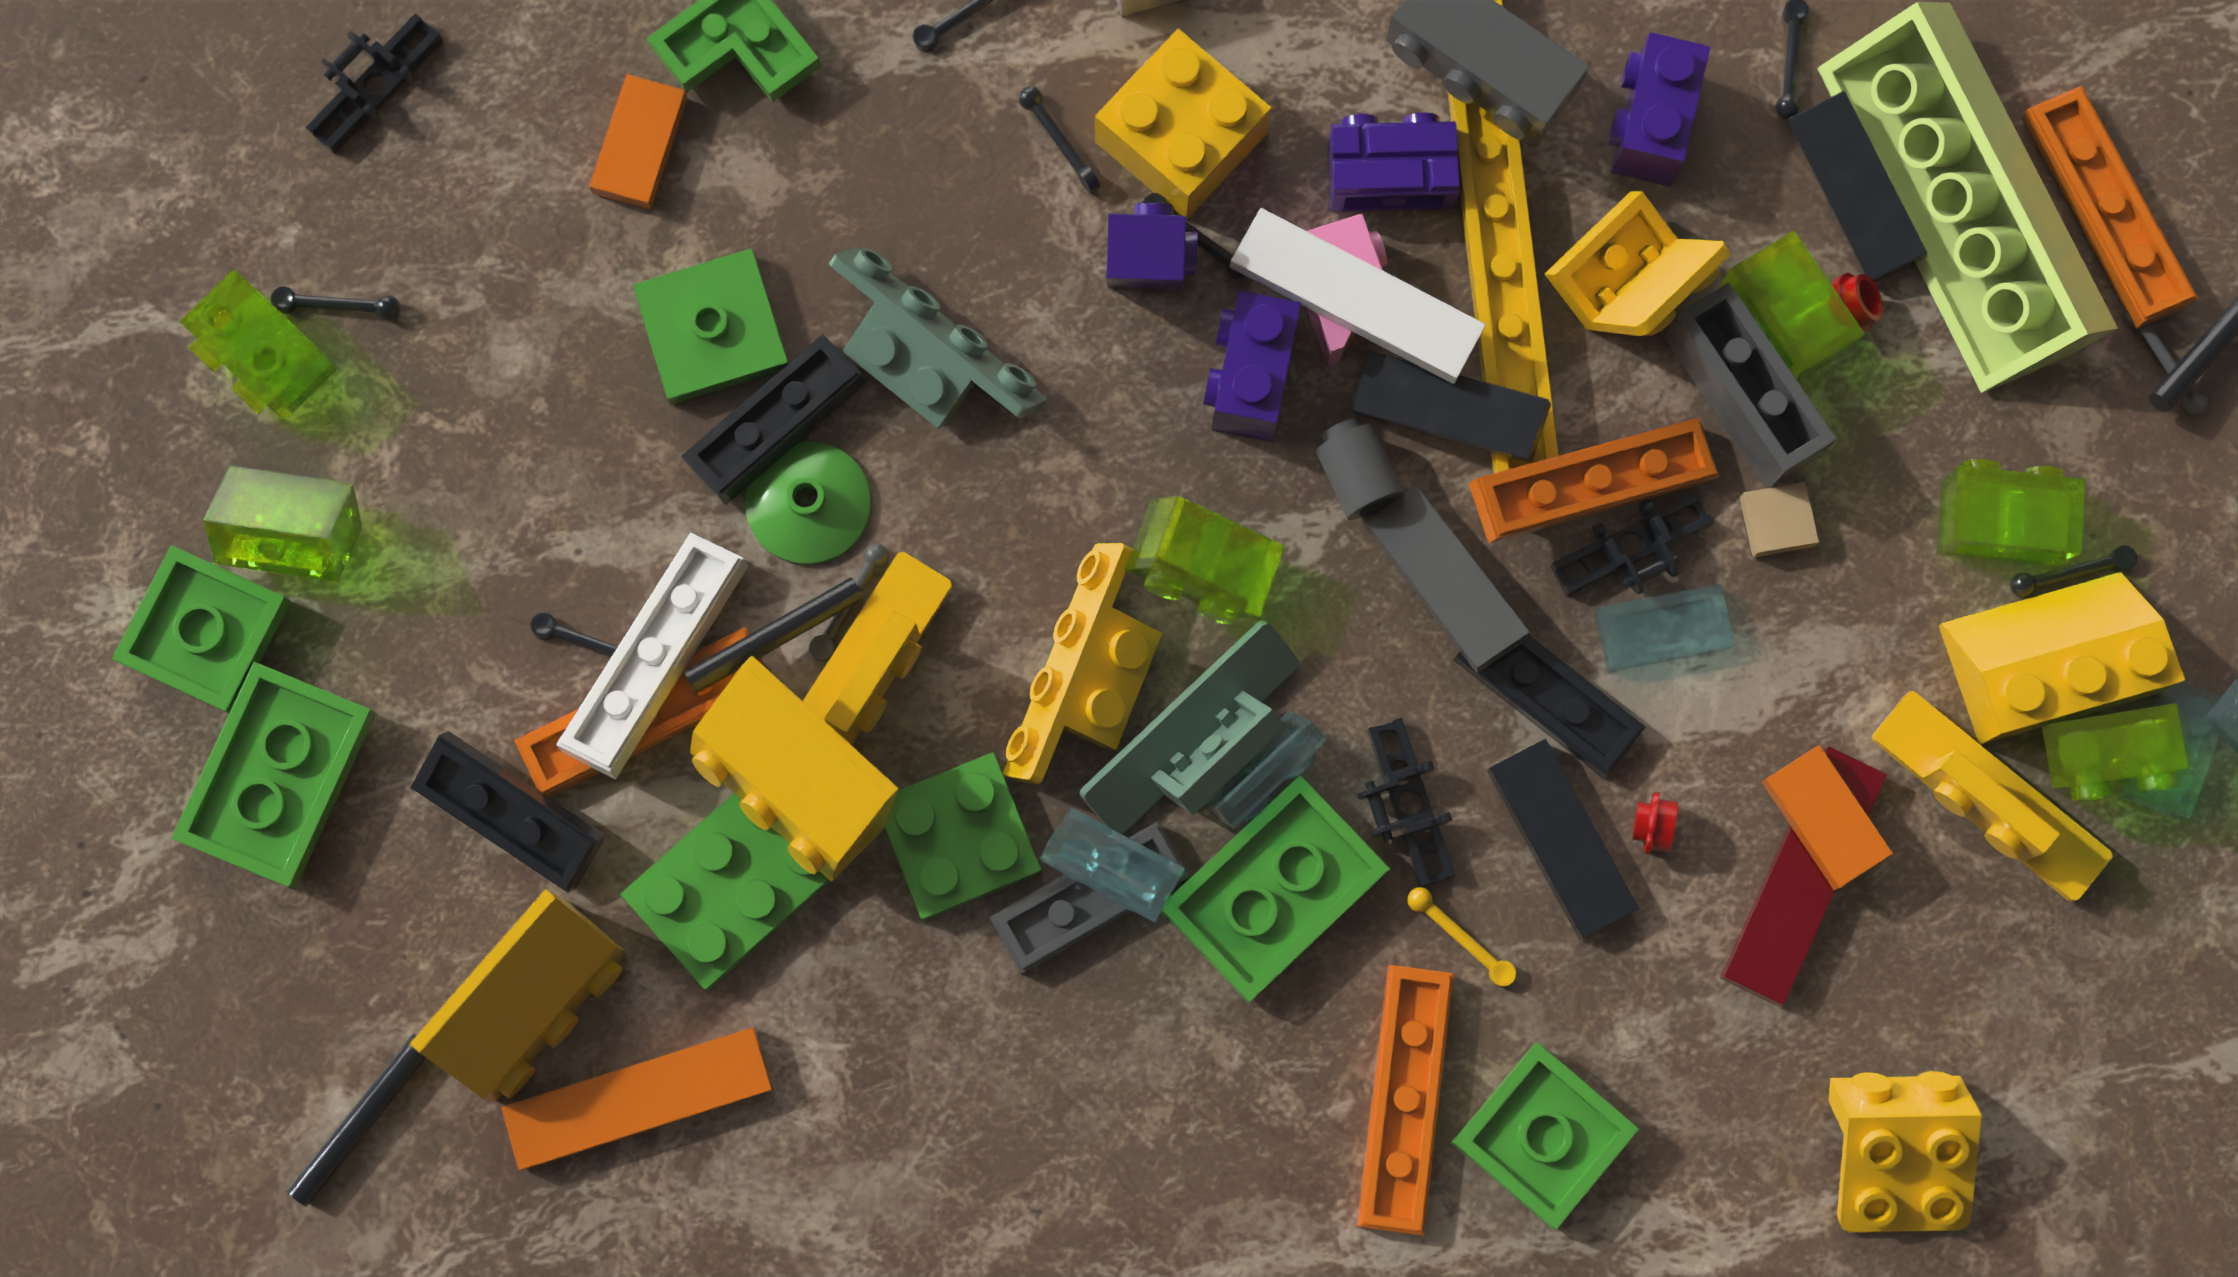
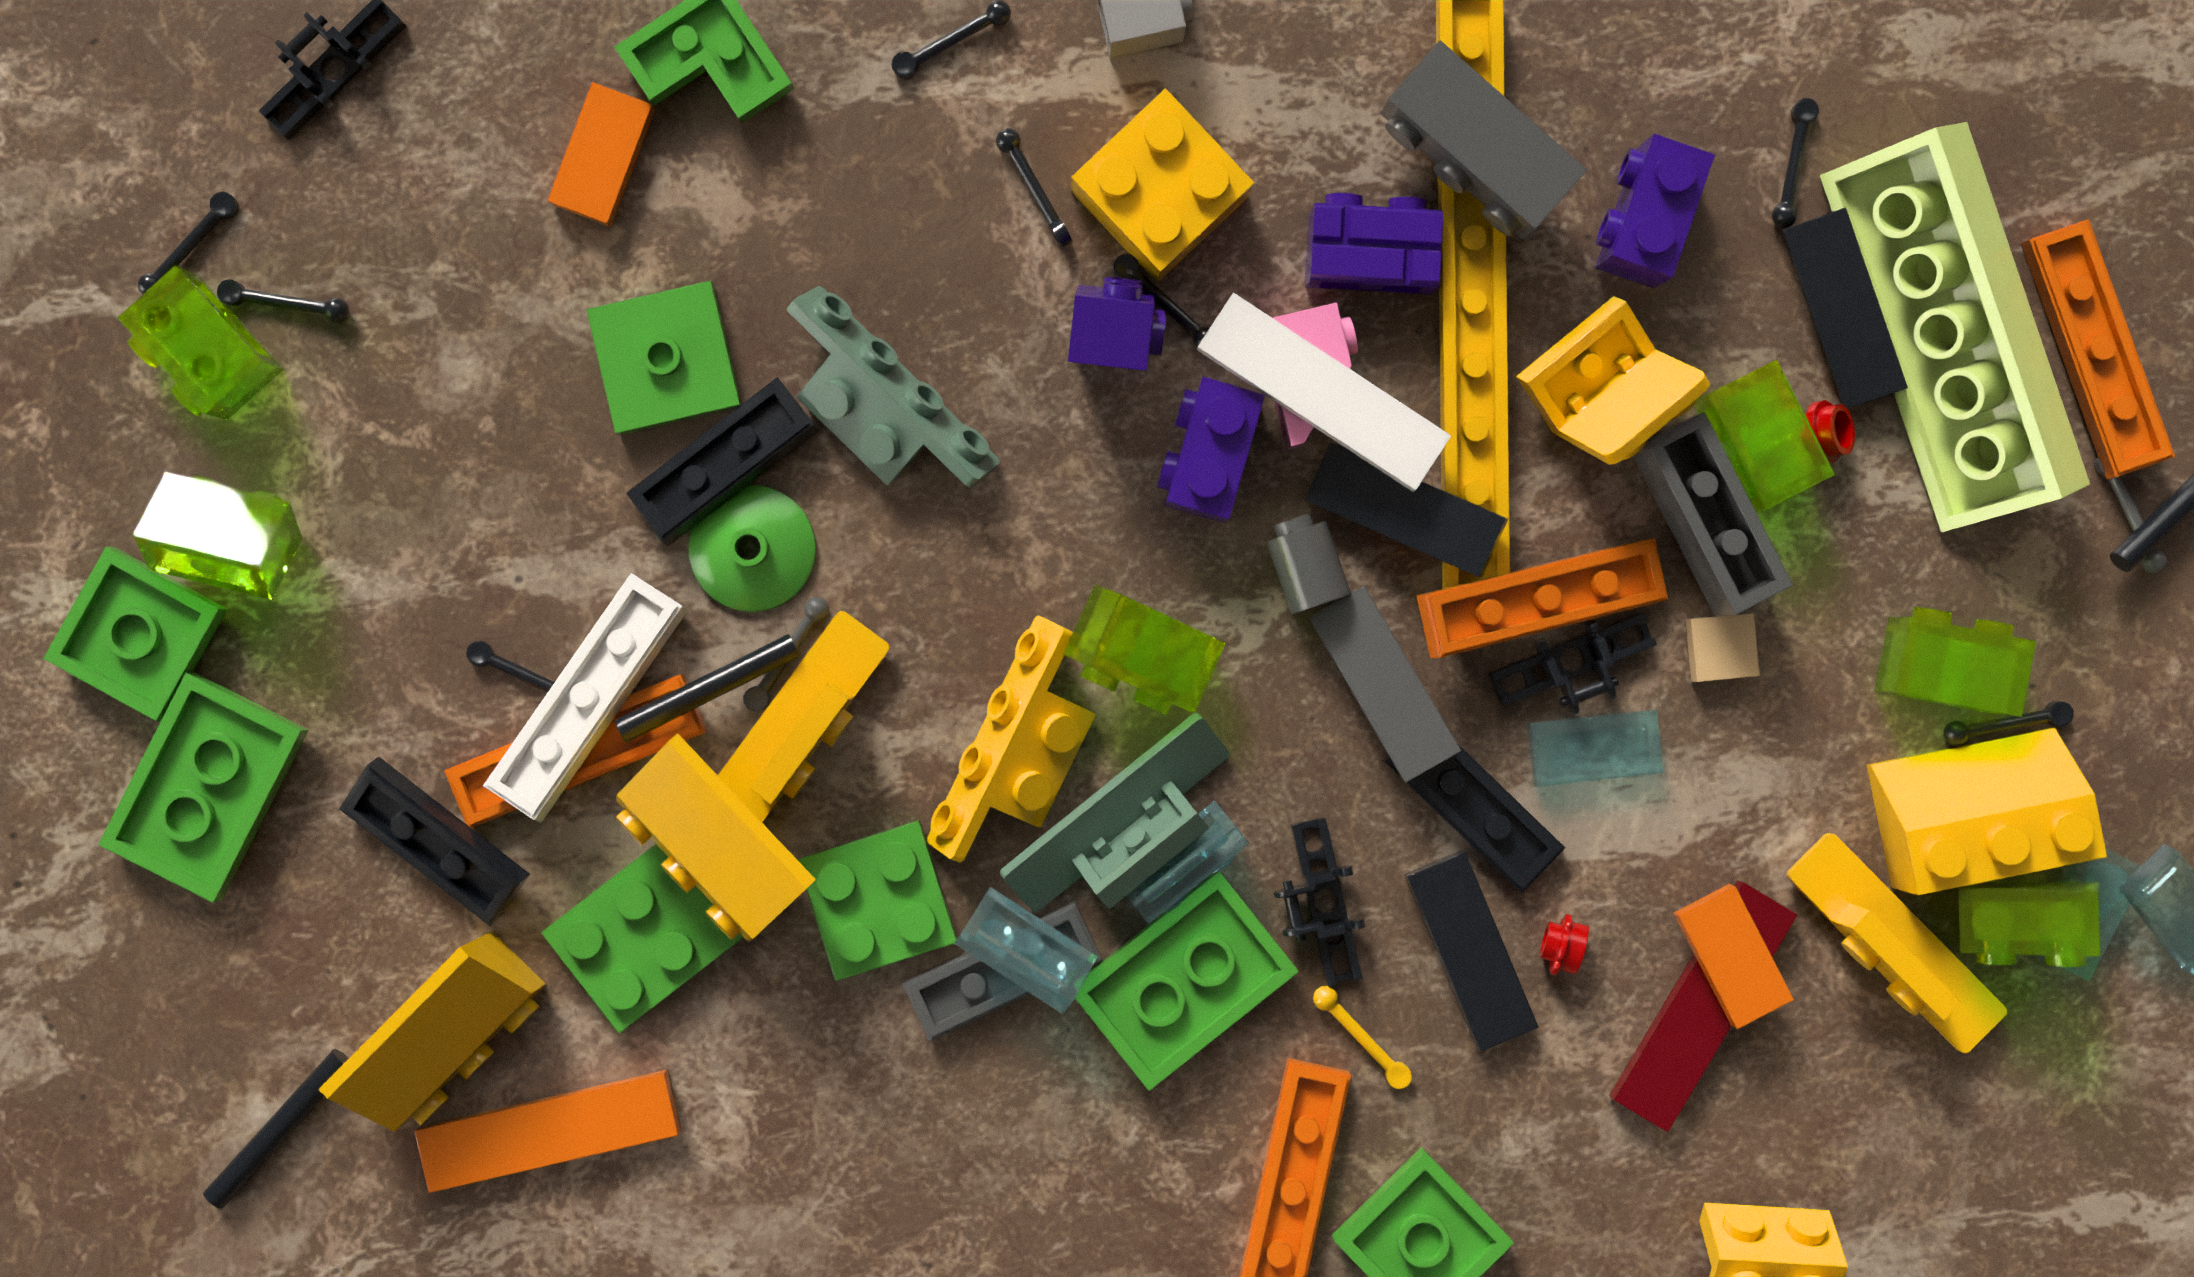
camera: 10 degrees right, 10 degrees up
(273, 220) = (222, 207): none -> black hinge

